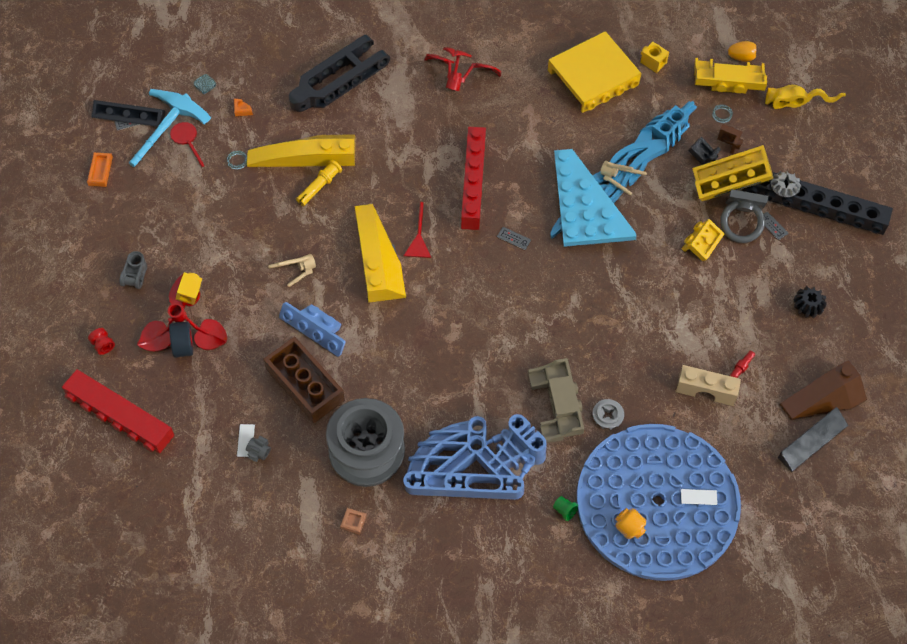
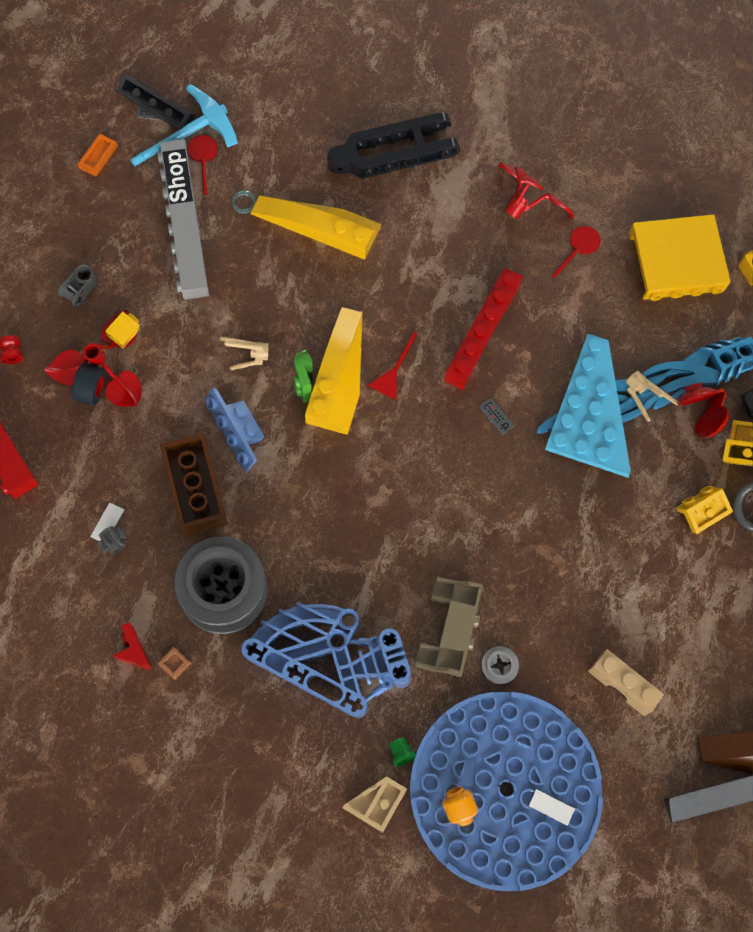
camera: 20 degrees right, 10 degrees up
(196, 189) = (184, 220): none -> light grey brick
(204, 83) = (250, 100): clear light blue piece -> none
(242, 108) = (275, 144): orange tile -> none
(319, 525) = (135, 653): none -> red slope
(324, 177) = (325, 260): yellow pin -> none
(351, 266) = (303, 375): none -> bright green slope
(517, 88) = (583, 240): none -> red piece
(566, 553) = (377, 803): none -> tan wing
(678, 169) = (715, 417): none -> red animal
(742, 365) = (675, 675): red bar -> none

